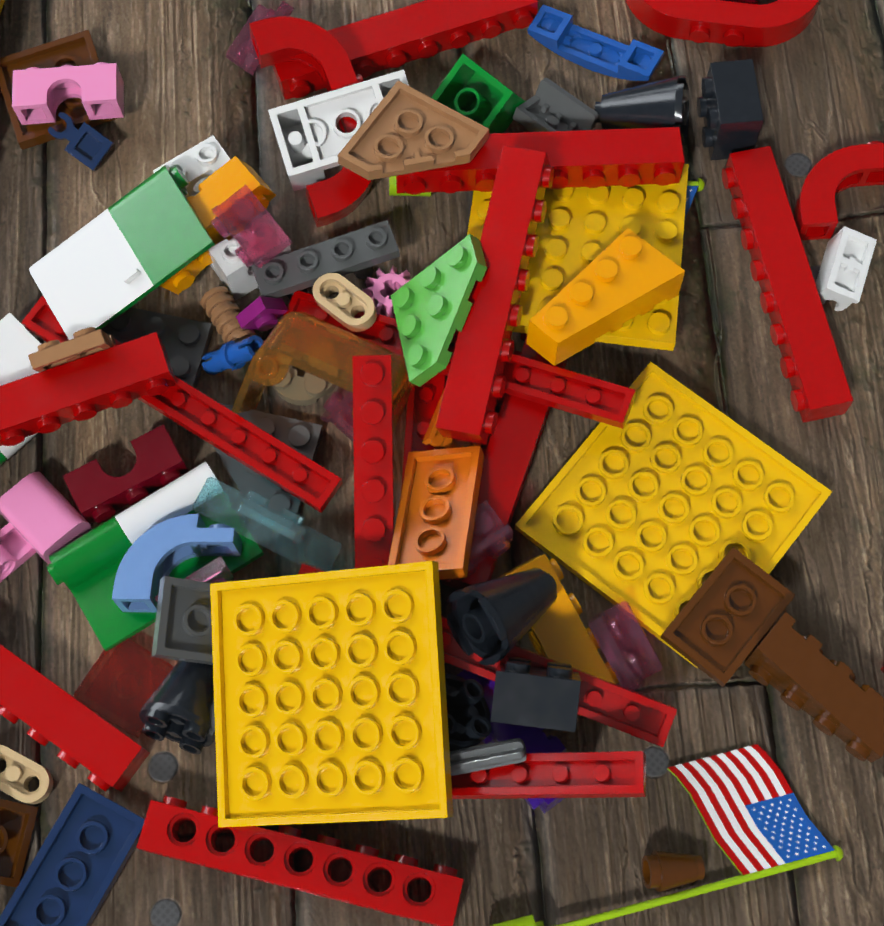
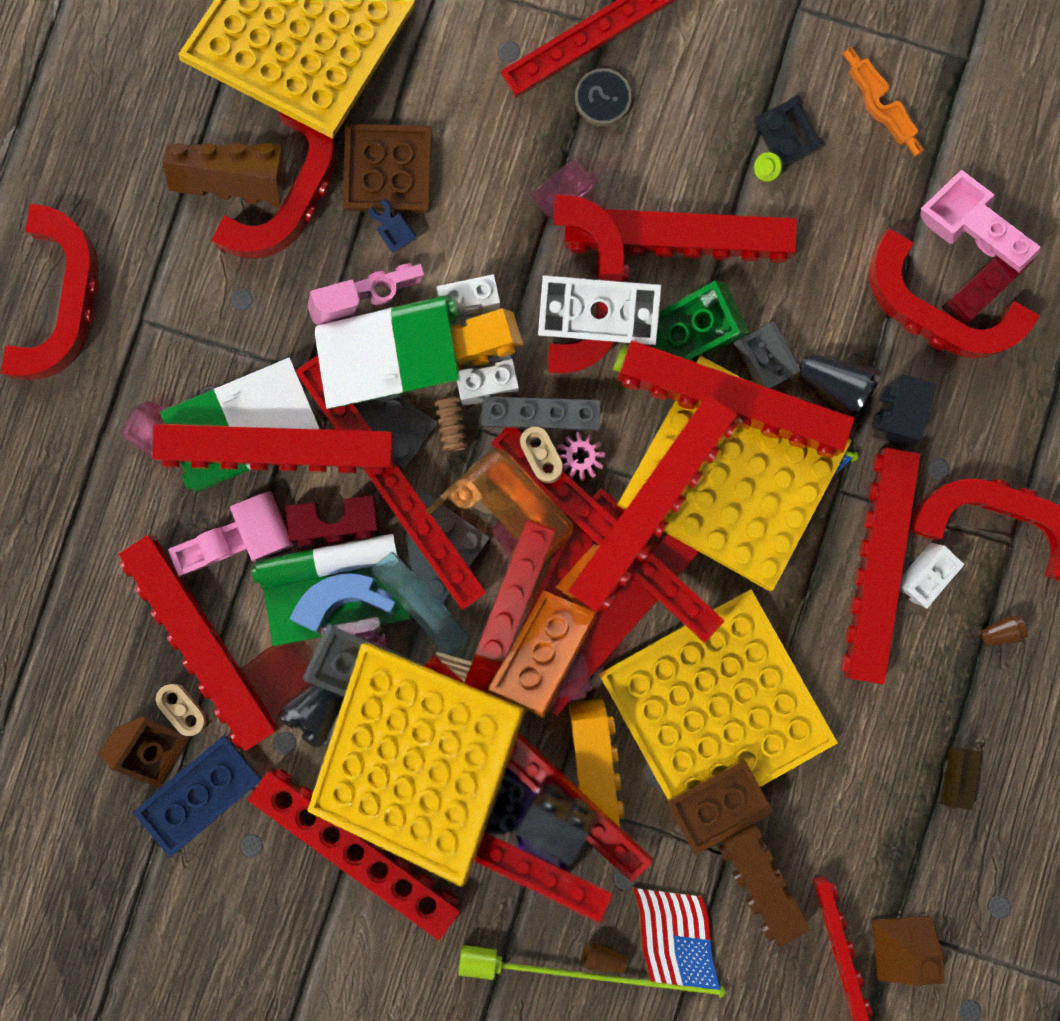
camera: 15 degrees right, 15 degrees up
(41, 90) = (373, 173): bright pink arch -> none
(50, 221) = (342, 299): none -> bright pink plate
(85, 343) = (325, 421): medium nougat plate -> none
(231, 355) = (443, 460): blue pin -> none
(250, 227) = (491, 373): clear pink bracket -> none
(262, 313) = (477, 436): magenta plate -> none
(411, 135) = (642, 349): medium nougat plate -> none
(435, 307) = (604, 498): bright green plate -> none
(487, 756) = (507, 848): dark grey axle -> none
(499, 612) = (557, 753): black cone -> none
(591, 50) = (823, 306): blue slope -> none
(608, 292) = (739, 537): light orange wedge -> none
(625, 645) = (637, 795): clear pink bracket -> none

